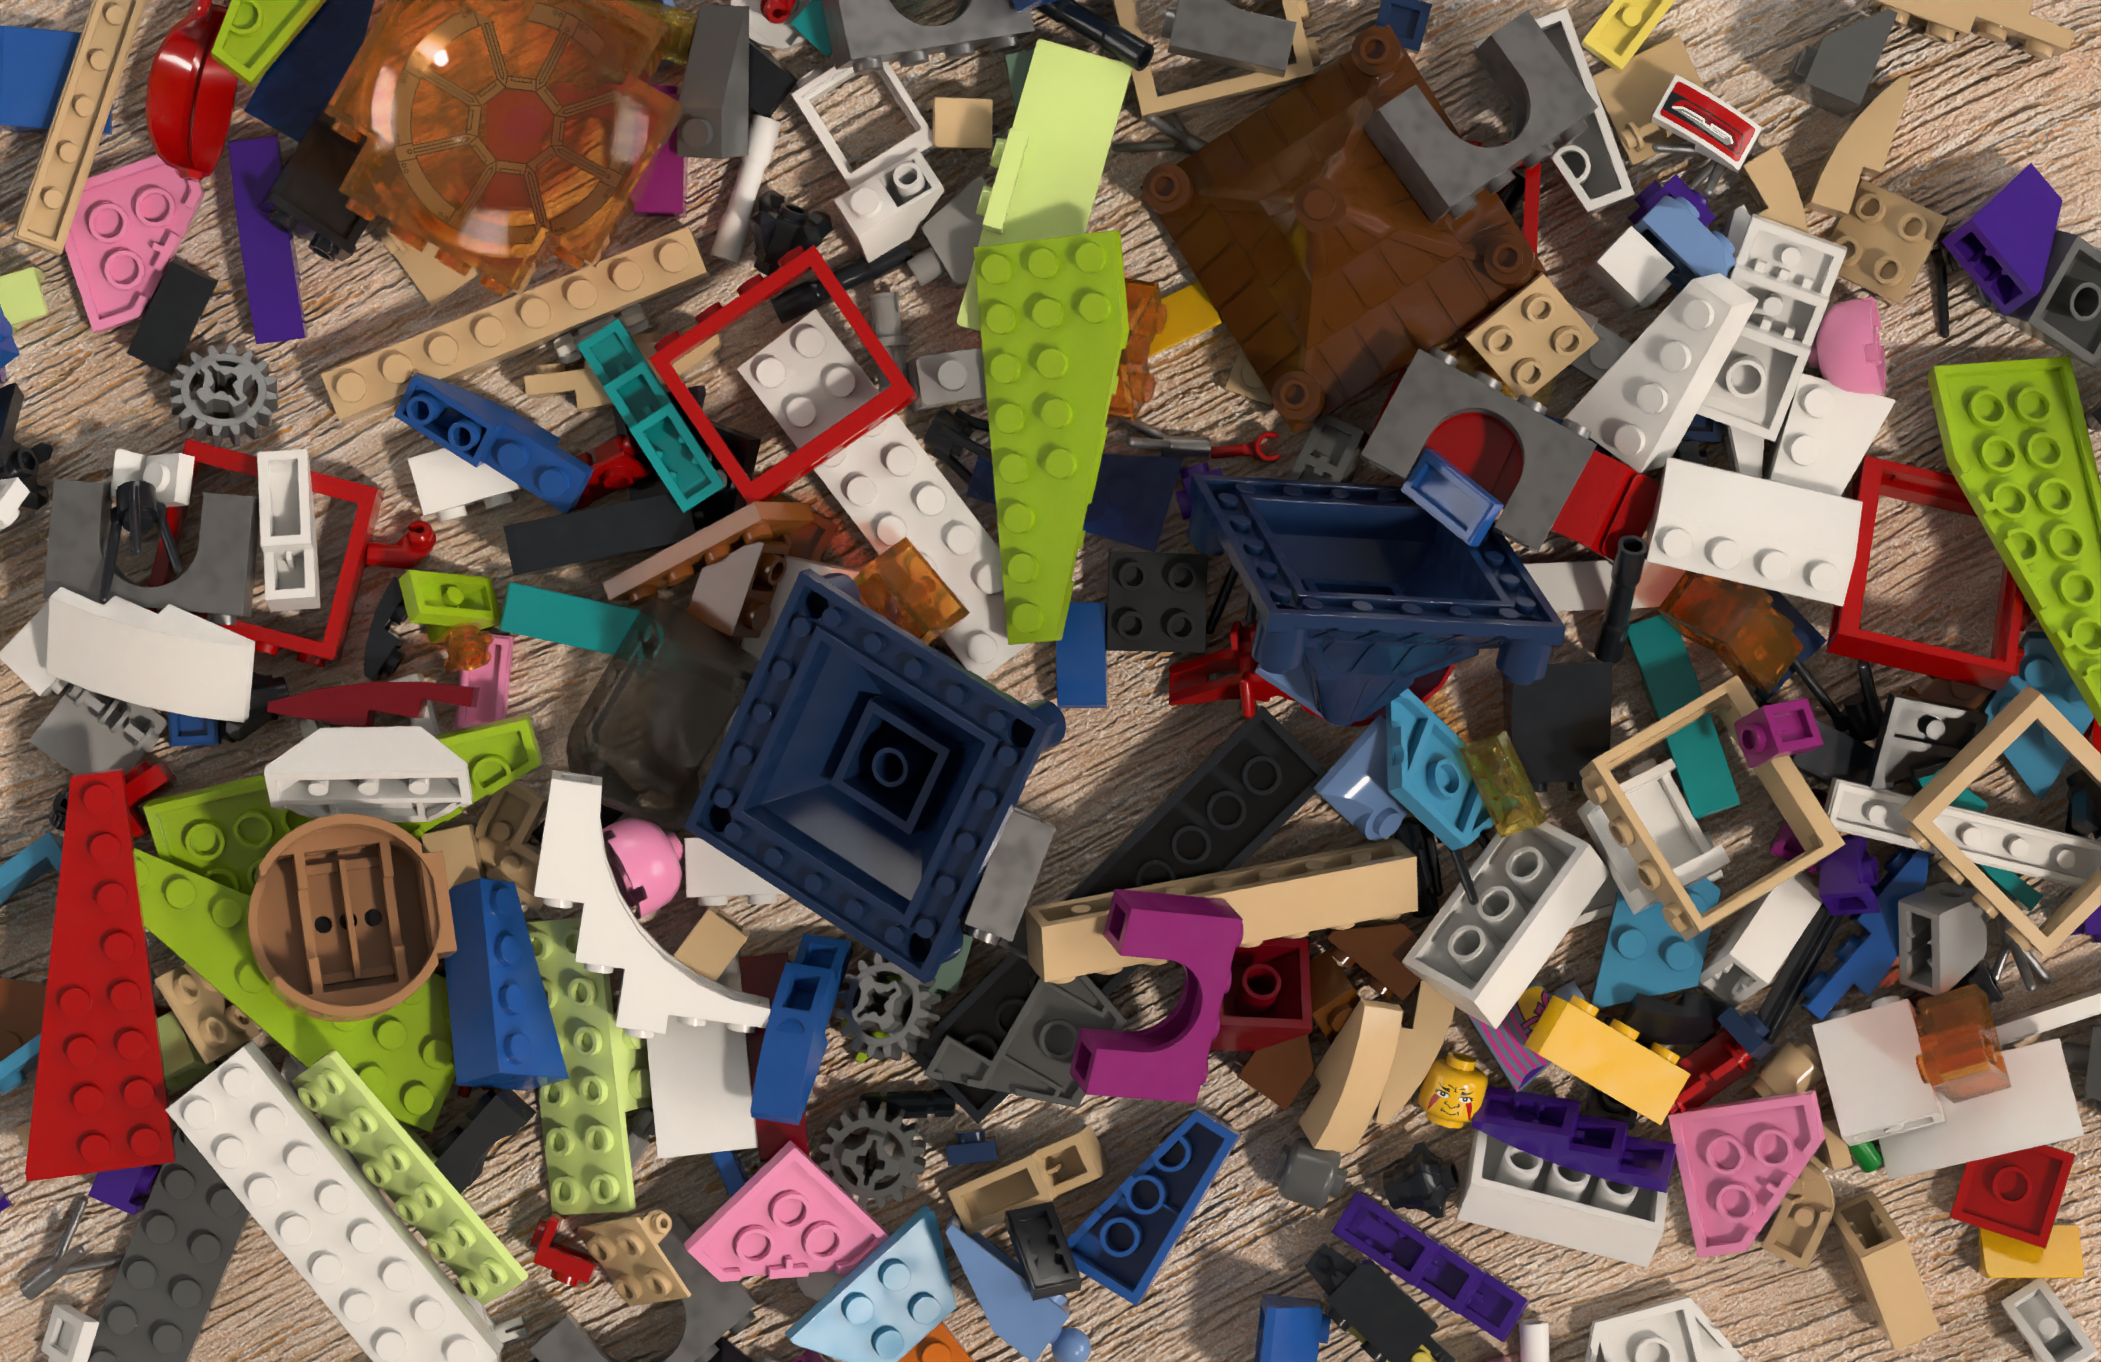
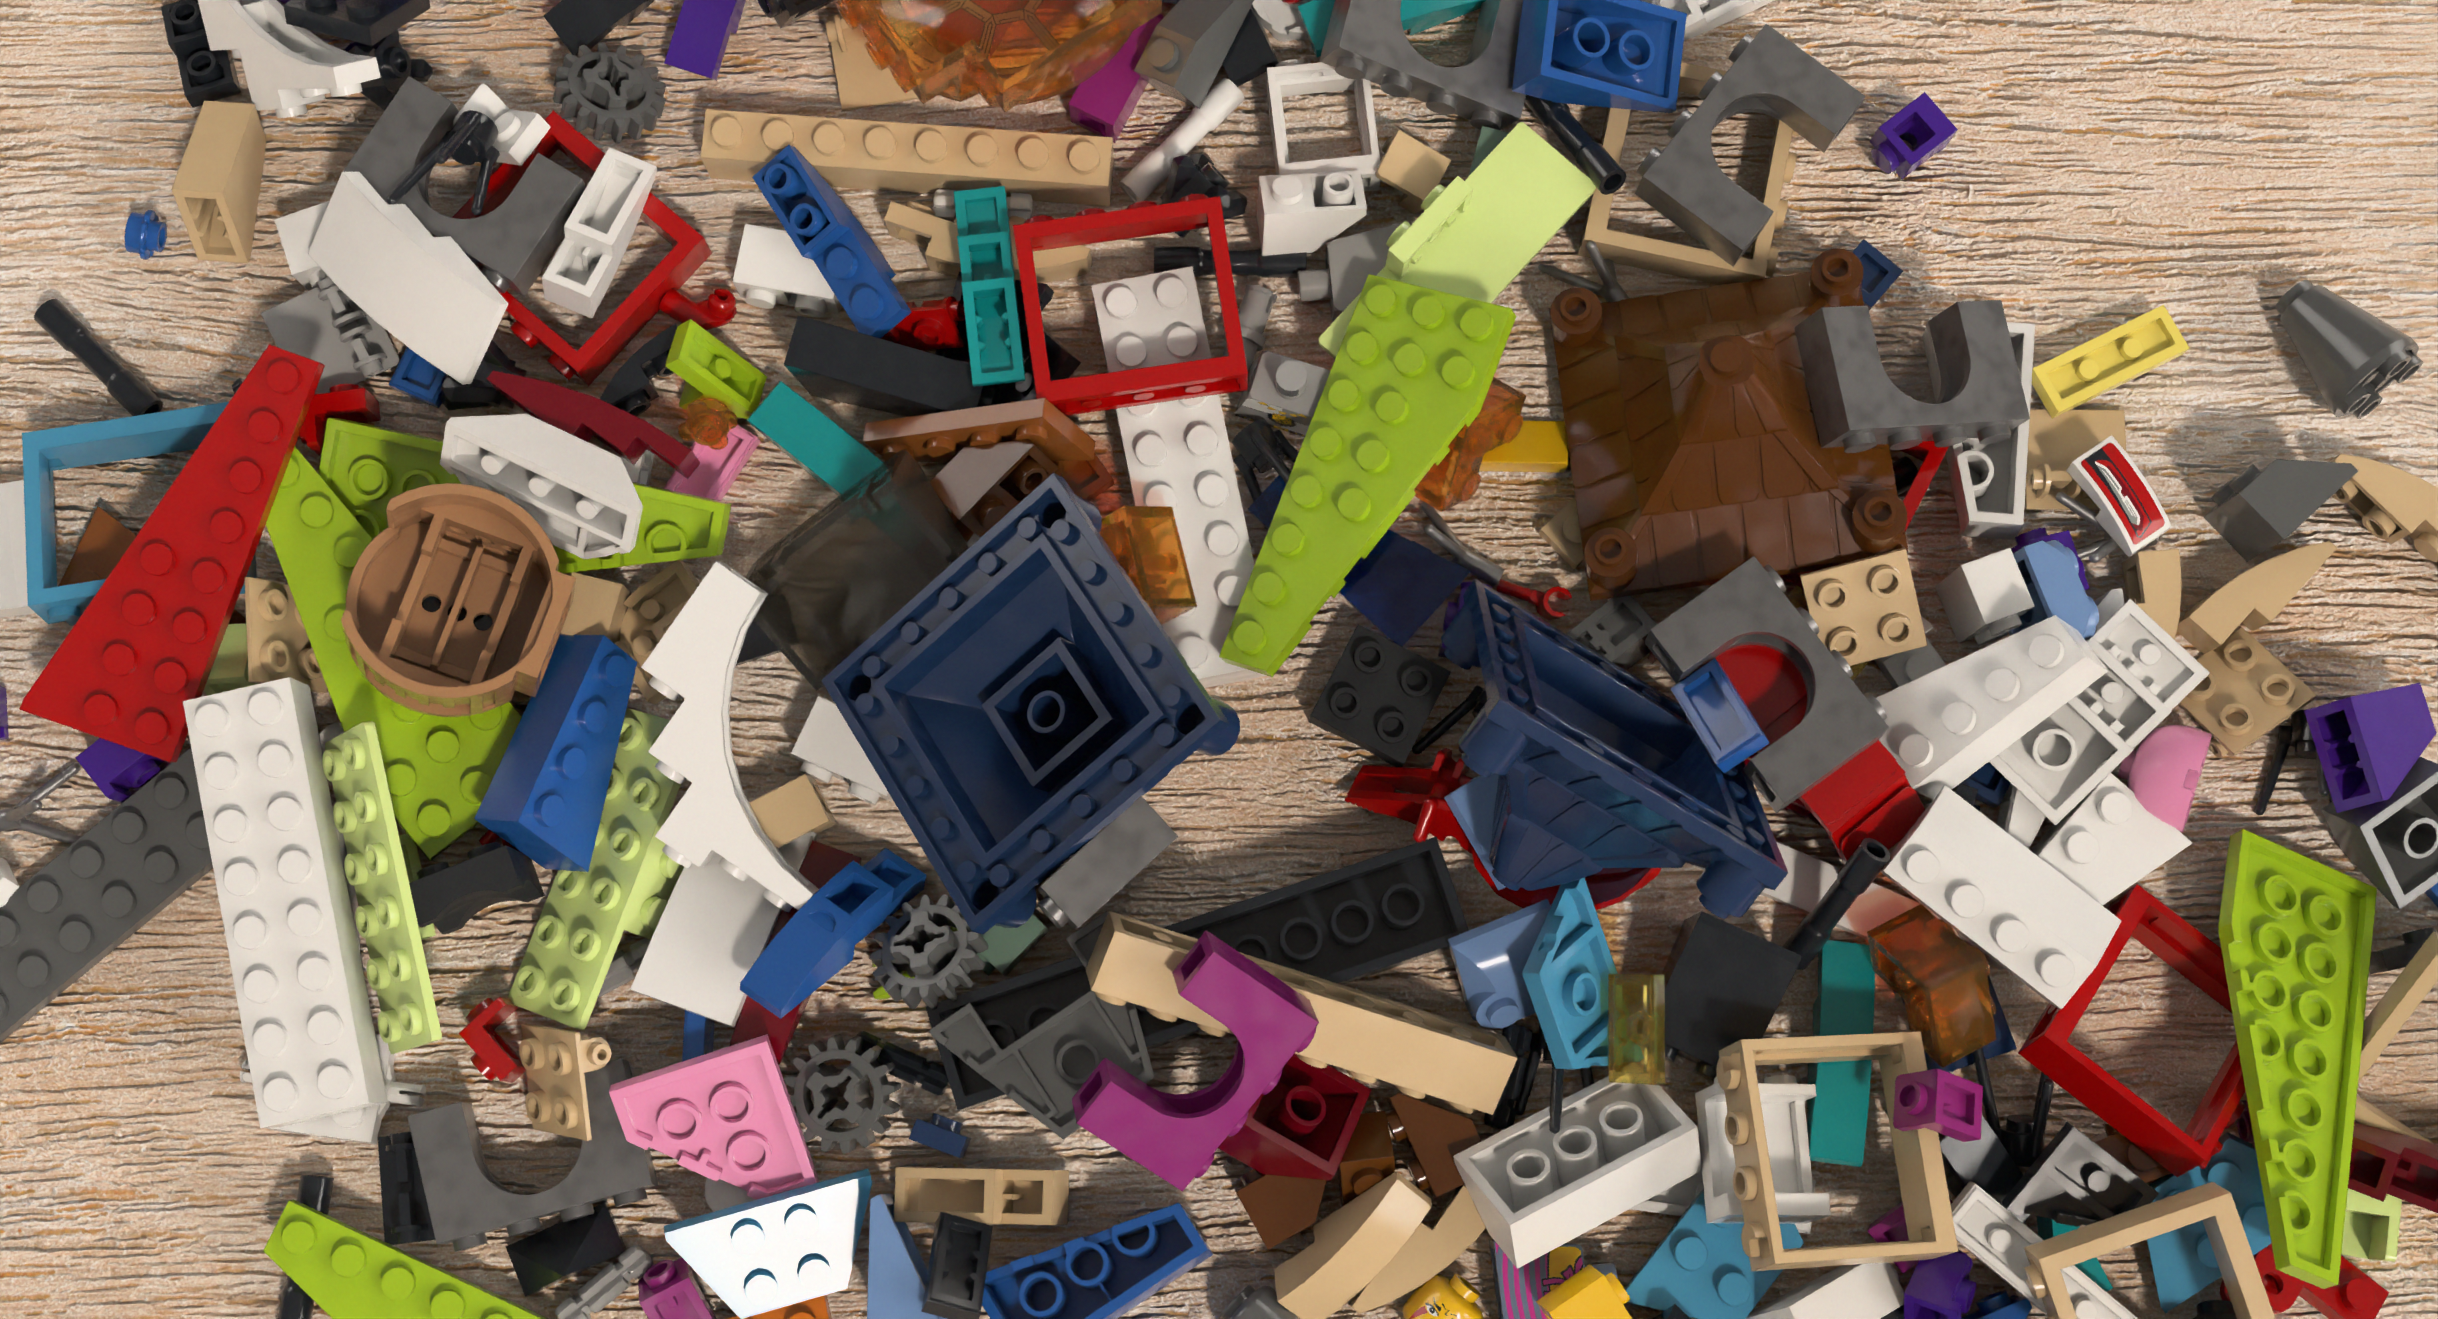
camera: 25 degrees right, 10 degrees down
(644, 863) = (766, 701): bright pink cylinder -> none
(1083, 657) = (1283, 713): blue slope -> none

